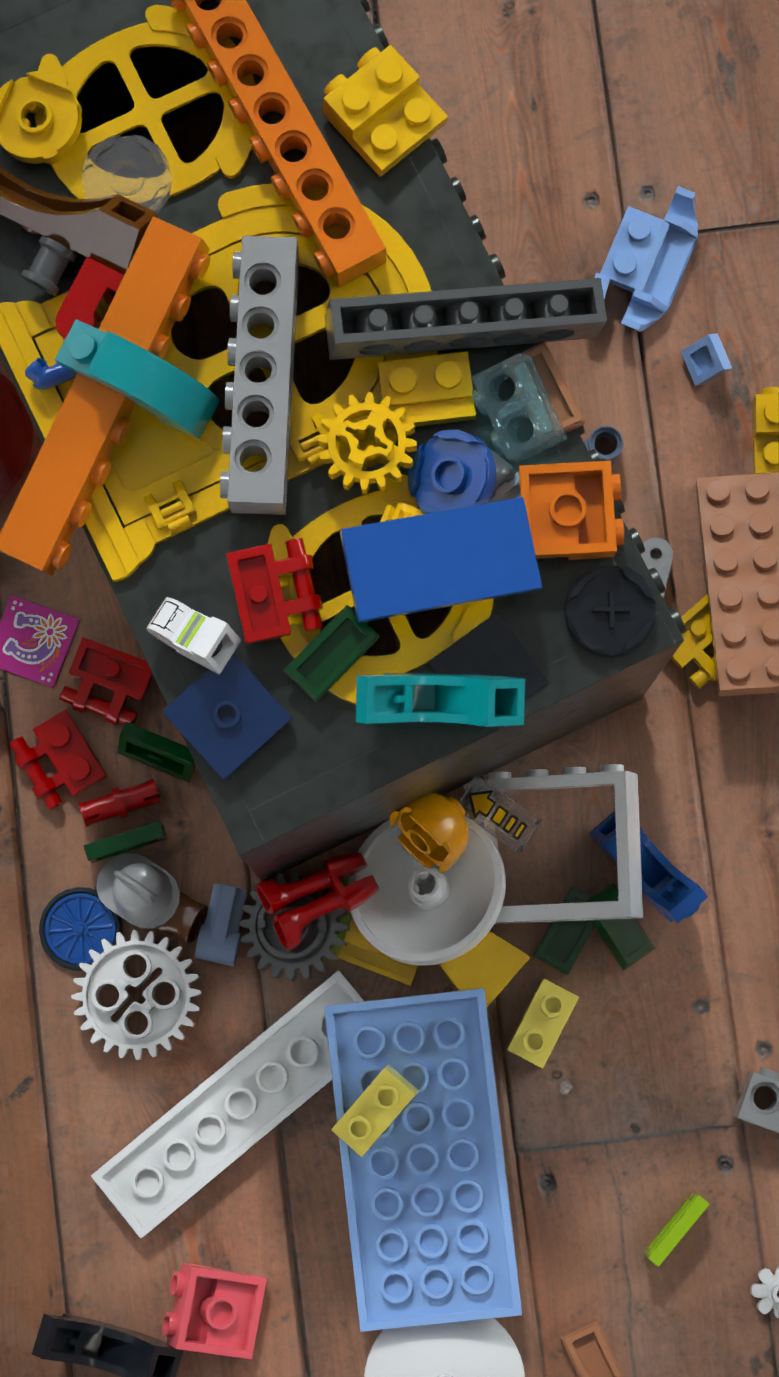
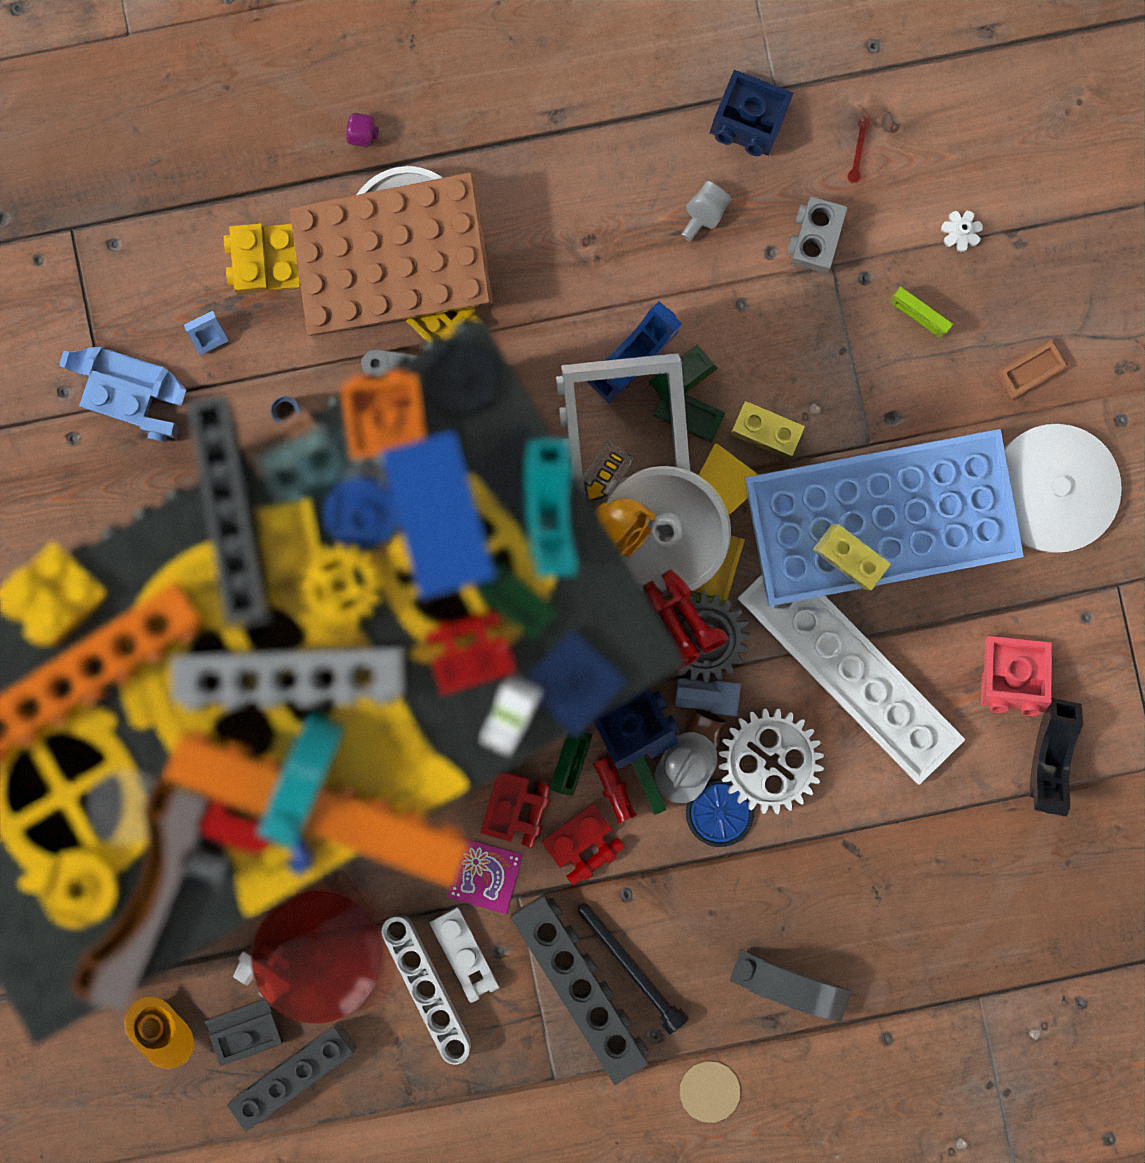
camera: 95 degrees left, 5 degrees up
(189, 834) = (637, 728): none -> dark blue plate

